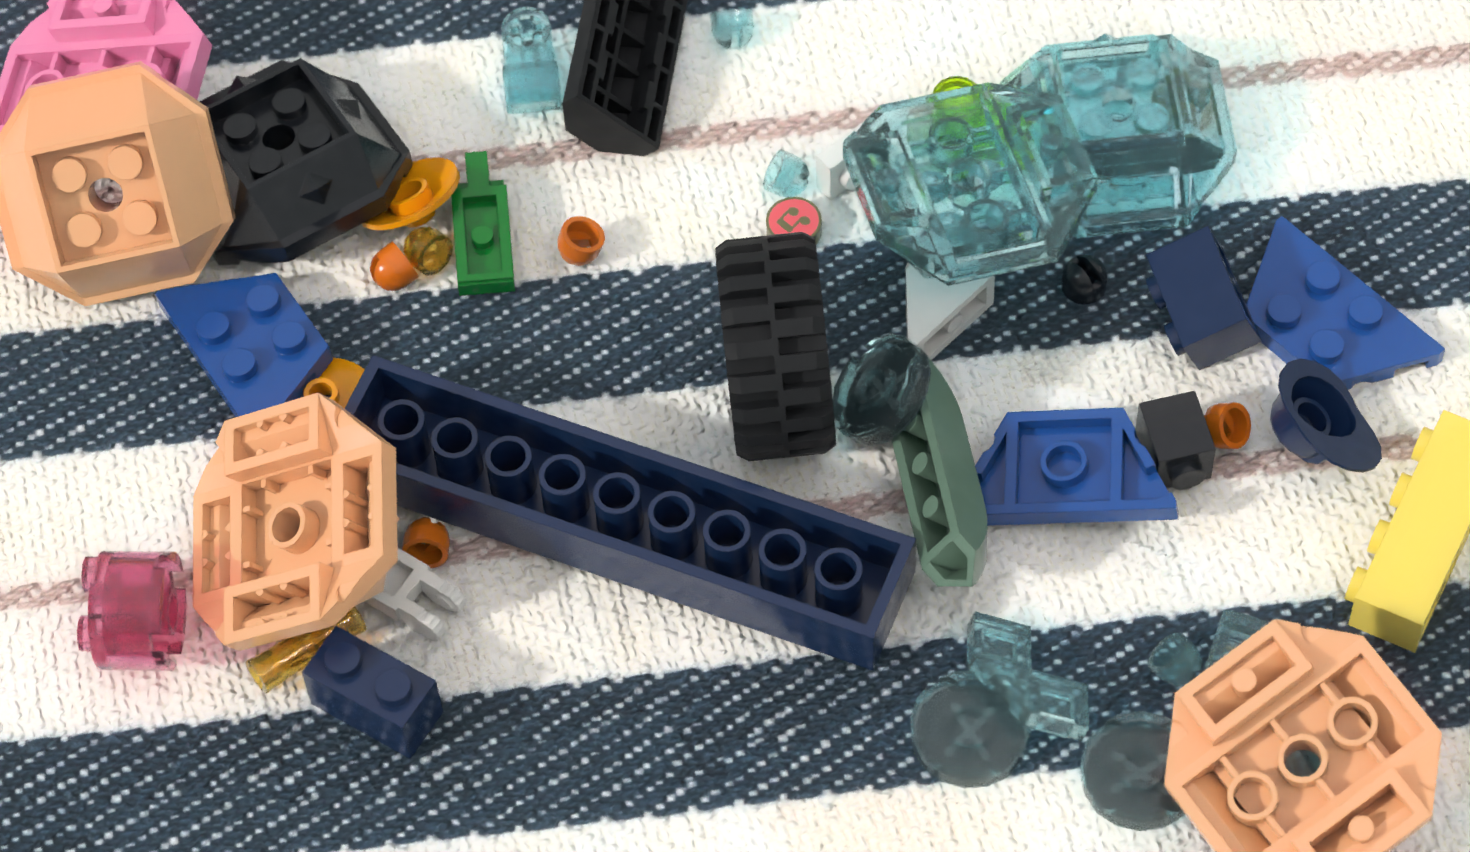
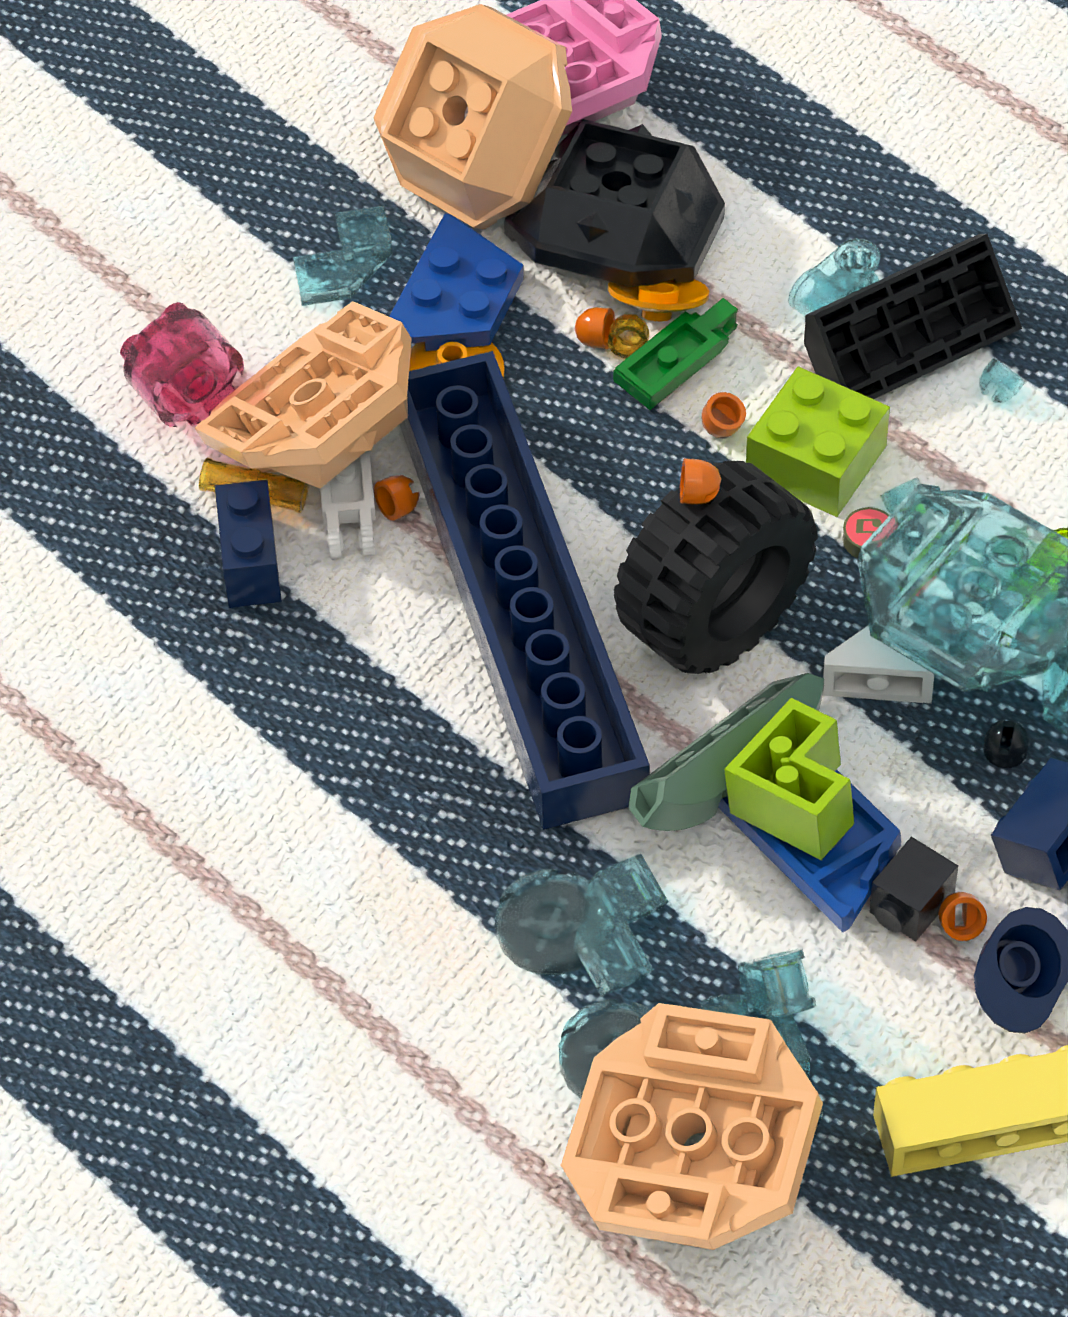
camera: 50 degrees right, 5 degrees down
(131, 418) = (341, 273): none -> clear light blue tile
(676, 192) = (819, 440): none -> lime brick
(745, 284) = (698, 482): none -> orange hinge
(881, 390) = (768, 671): clear light blue tile -> none
(1028, 456) = (790, 783): none -> lime brick
(1194, 599) = (776, 984): none -> clear light blue piece

